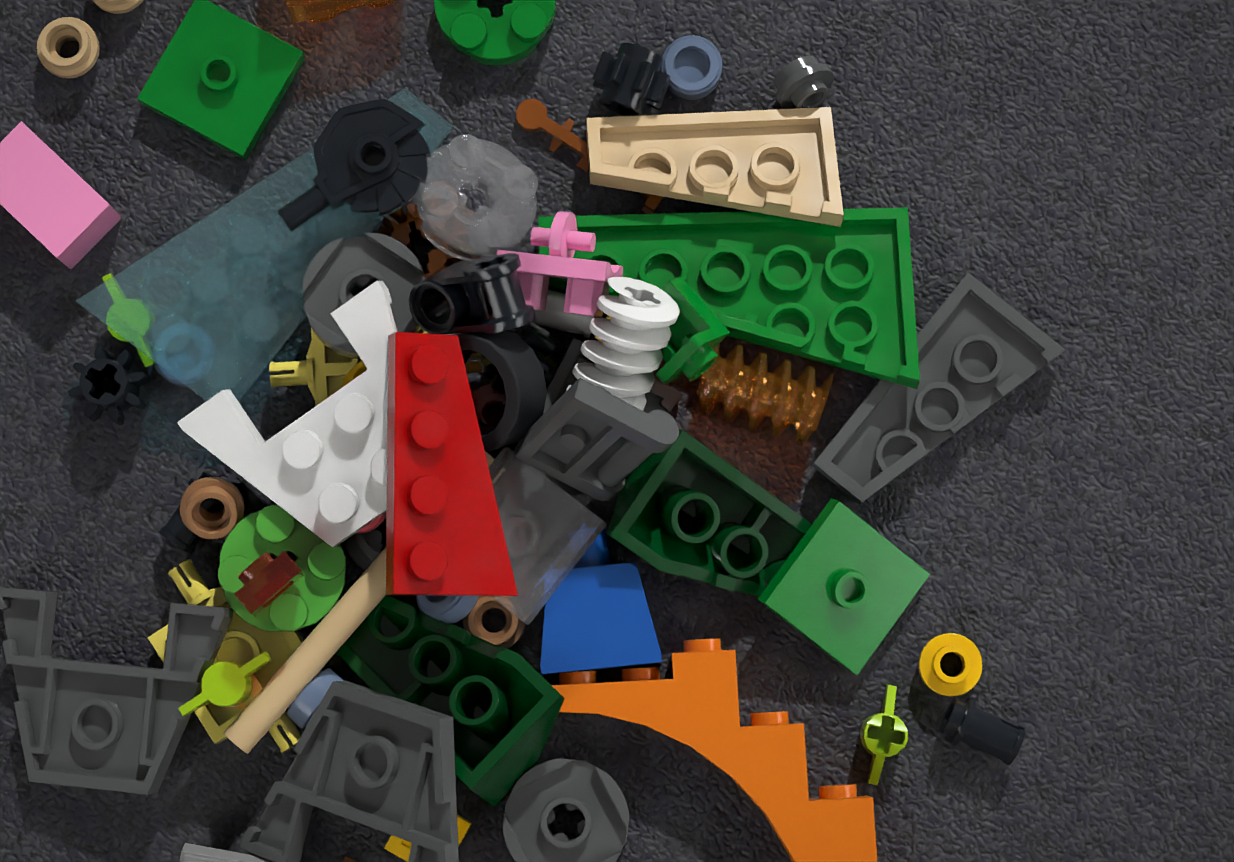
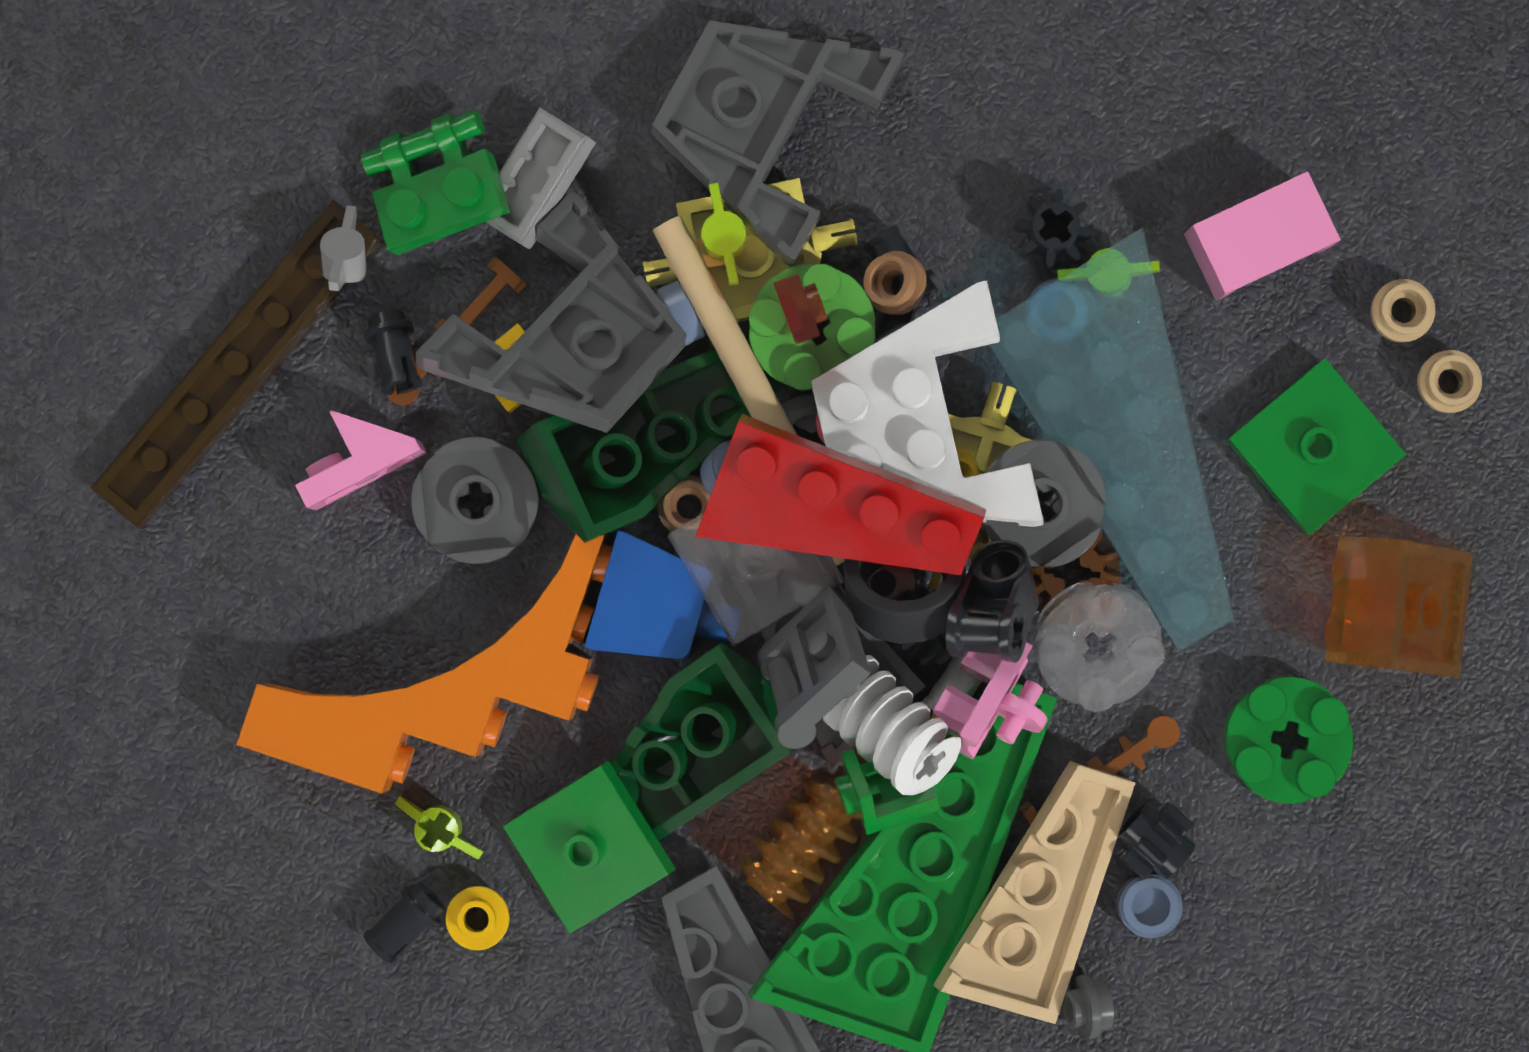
camera: 115 degrees right, 5 degrees up
(366, 160) = (1172, 554): black piece -> none

